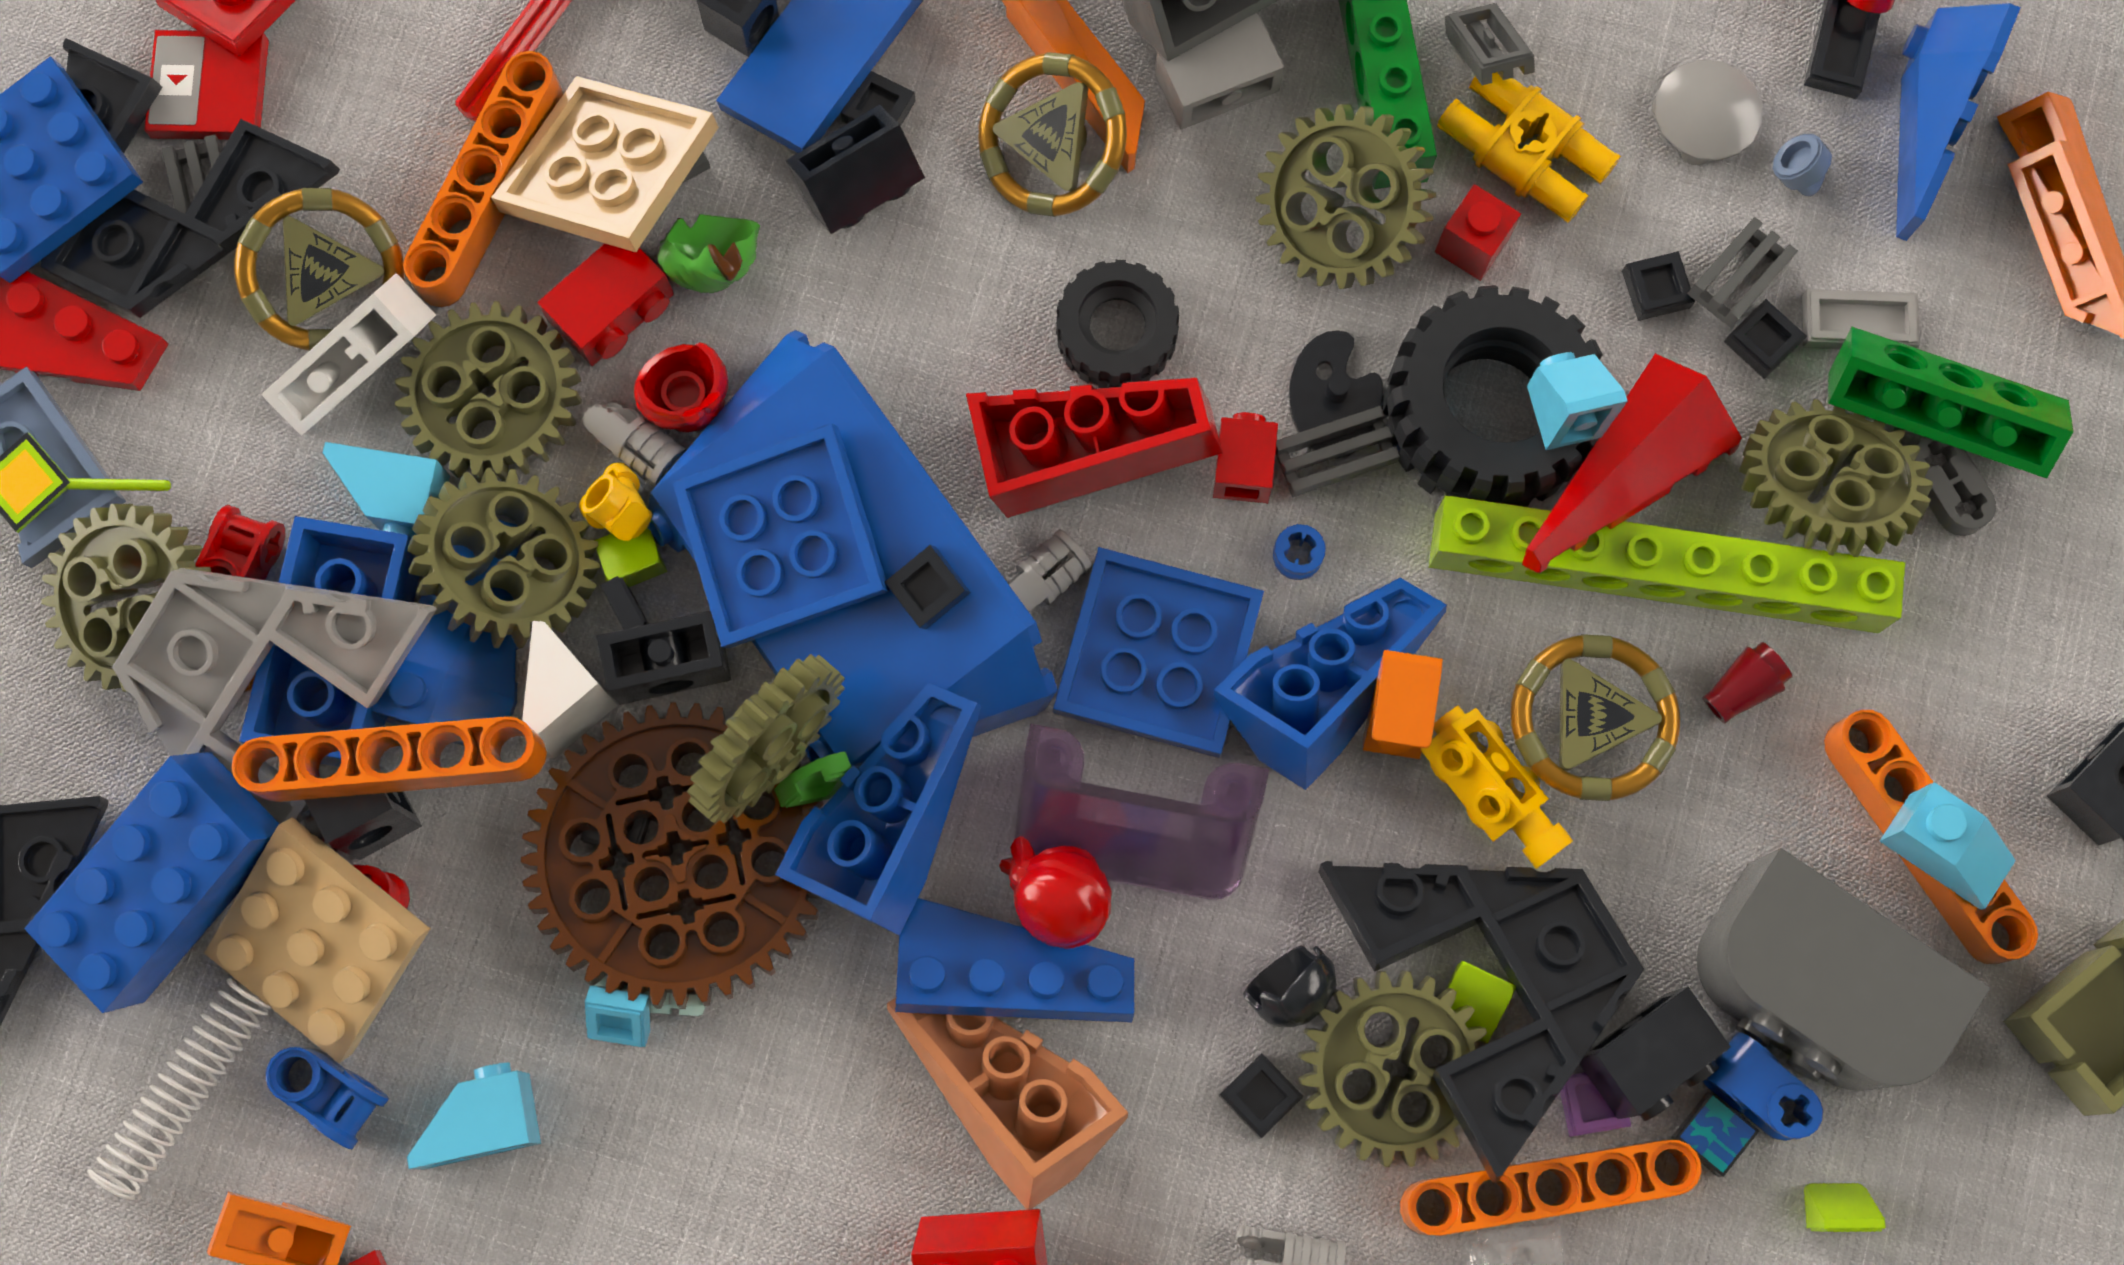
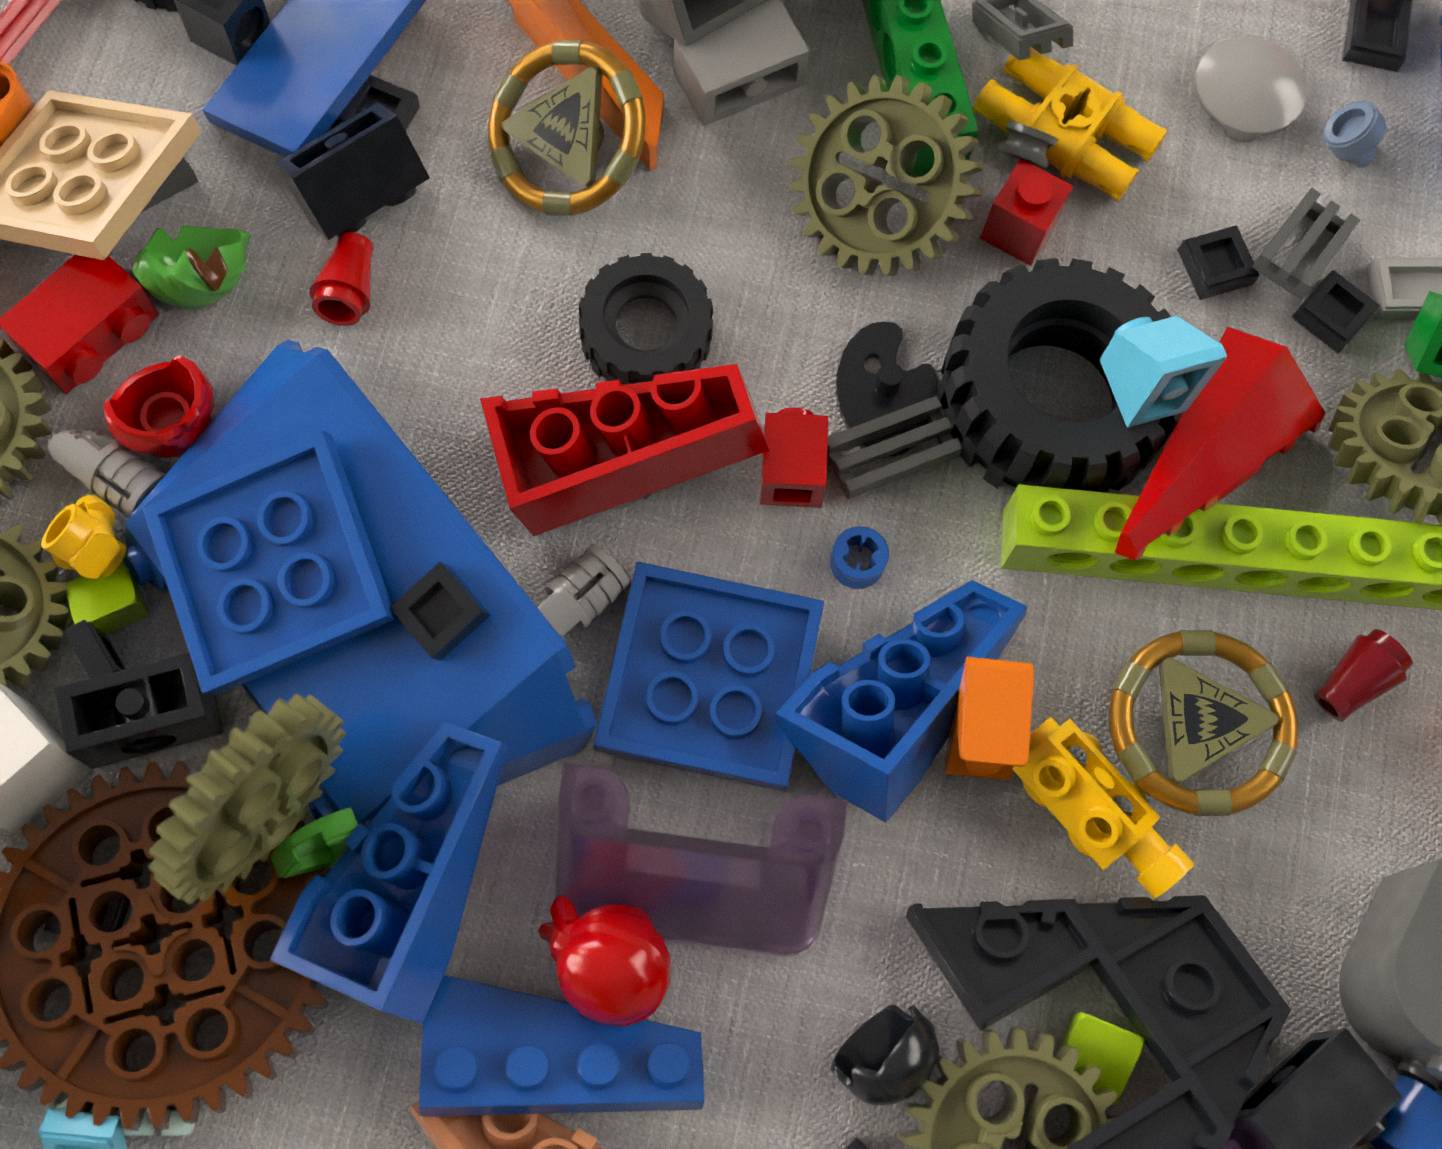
camera: 10 degrees left, 5 degrees down
(844, 274) = (344, 282): none -> red cone
(1482, 169) = (1027, 144): none -> dark grey bush

